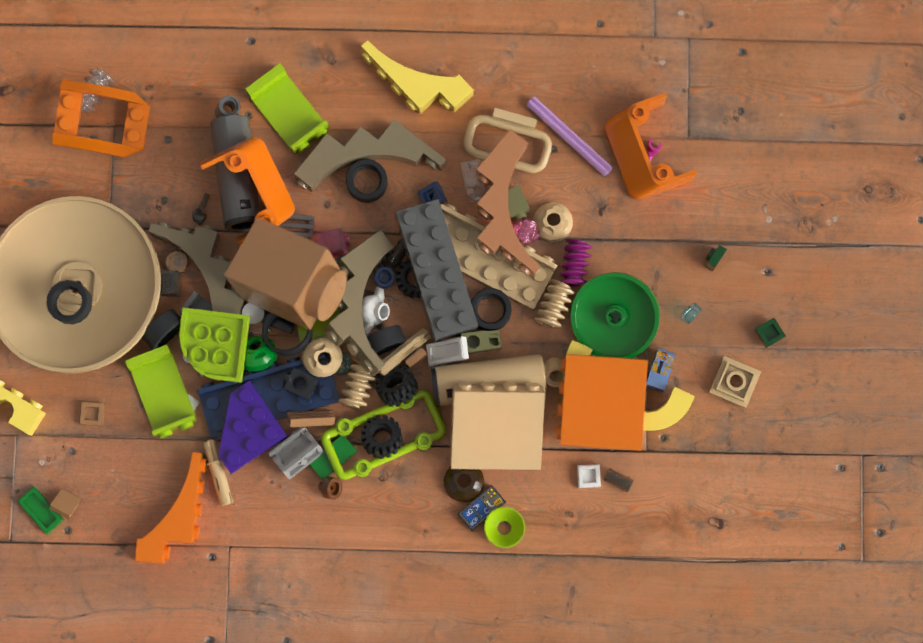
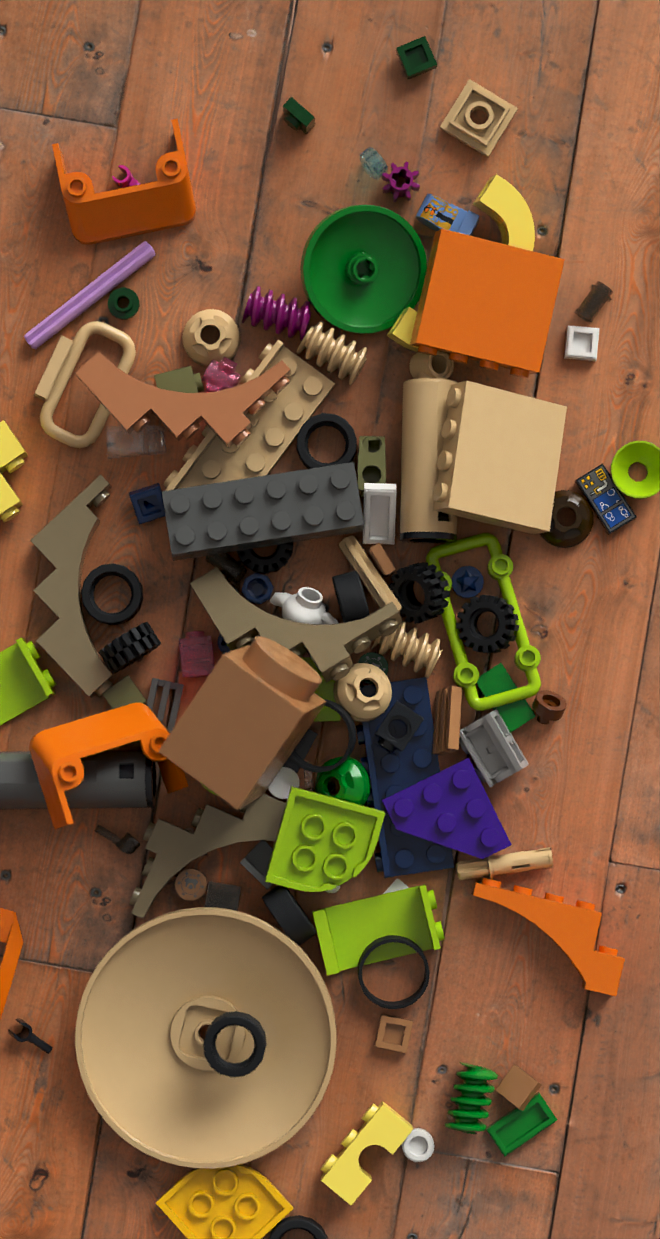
camera: 80 degrees left, 5 degrees up
(18, 441) = (418, 1145): none -> white tile
(53, 472) = (471, 1099): none -> green piece
(61, 168) = (27, 1035): none -> black hand
(111, 405) = (397, 1004): none -> black tyre
(300, 199) = (123, 693): none -> olive tile
(331, 196) = (129, 647): none -> black tyre
(409, 420) = (467, 582): none -> dark blue tile
(564, 165) = (123, 313): none -> dark green plate
(675, 337) = (406, 187): none -> magenta gear

